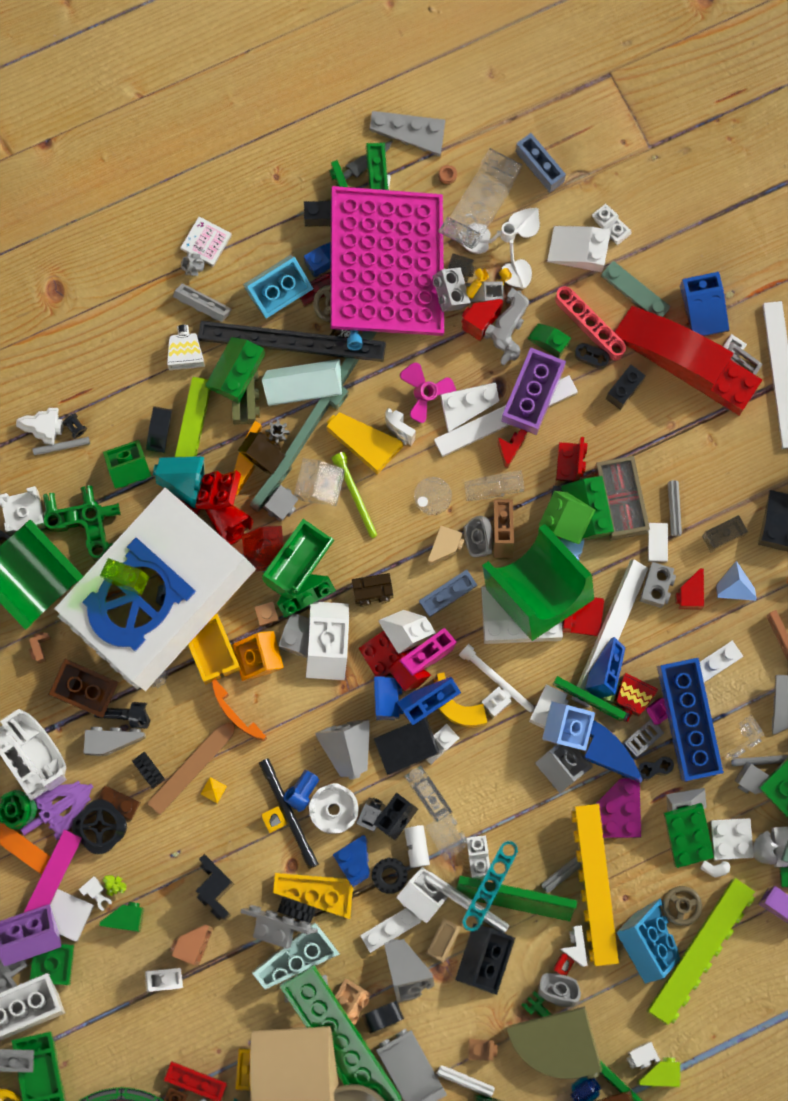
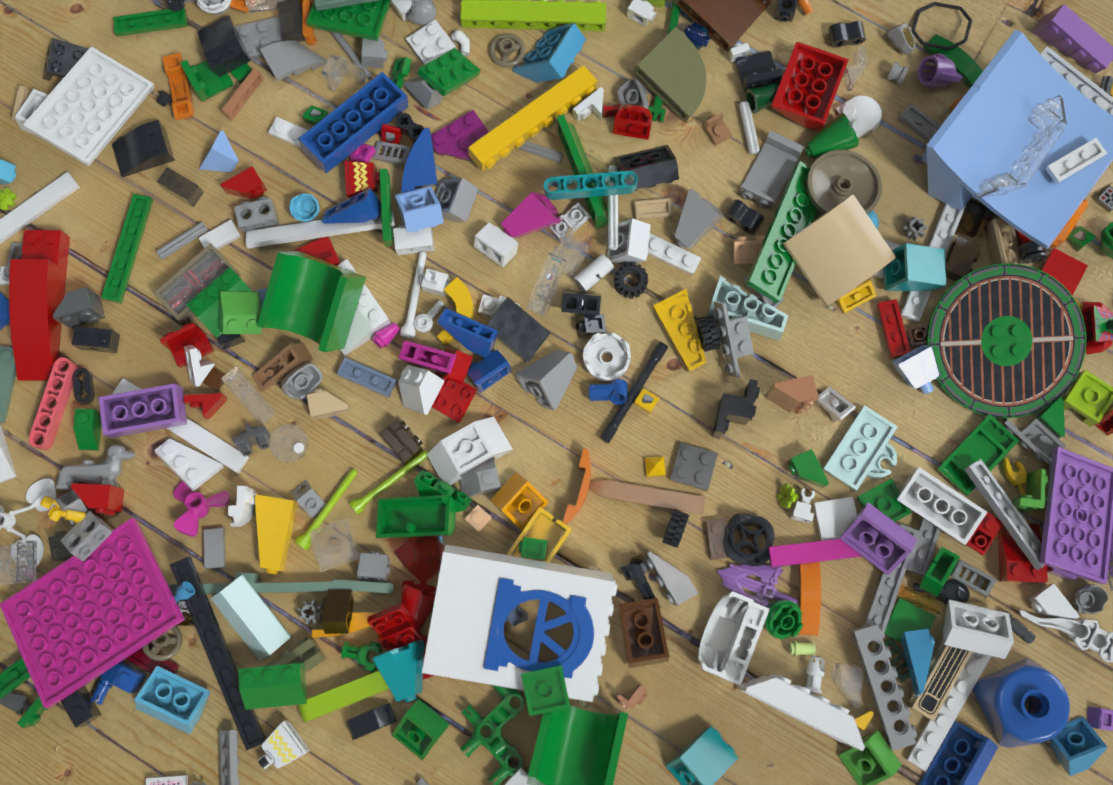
camera: 115 degrees left, 0 degrees up
(84, 574) = (545, 690): none -> green plate
(109, 978) = (863, 449): none -> light aqua plate
(124, 576) = (526, 651): clear neon green brick -> none
(146, 1075) = (918, 368): none -> torso
(191, 823) = (694, 466): none -> dark grey plate
(207, 638) = (533, 548): none -> green bracket
(217, 452) = (362, 653): none -> green connector
(323, 236) = (101, 691): none -> blue pin
(342, 523) = (359, 504): none -> lime piece
(354, 860) = (638, 314): blue wing -> none
(373, 483) = (308, 499): none -> light grey bracket
(382, 386) = (214, 548): none -> light grey tile
(456, 469) = (251, 437): none -> flat silver hips
(466, 671) = (424, 322): none -> white plate
(475, 631) = (385, 335): none -> dark pink cone
(496, 776) = (496, 244): none -> white brick
(501, 823) = (530, 216): none -> dark pink slope
(529, 466) = (214, 379): none -> reddish brown tile
(534, 973) = (633, 121): none -> red slope
(546, 457) = (196, 369): none -> white slope
(637, 629) = (304, 207): none -> medium azure hair
(660, 747) = (391, 134): none -> red slope
(661, 390) = (79, 308): none -> dark grey slope
(695, 458) = (127, 248): none -> green plate
(719, 793) = (400, 70): none -> green plate
(723, 691) = (314, 115): none -> green slope

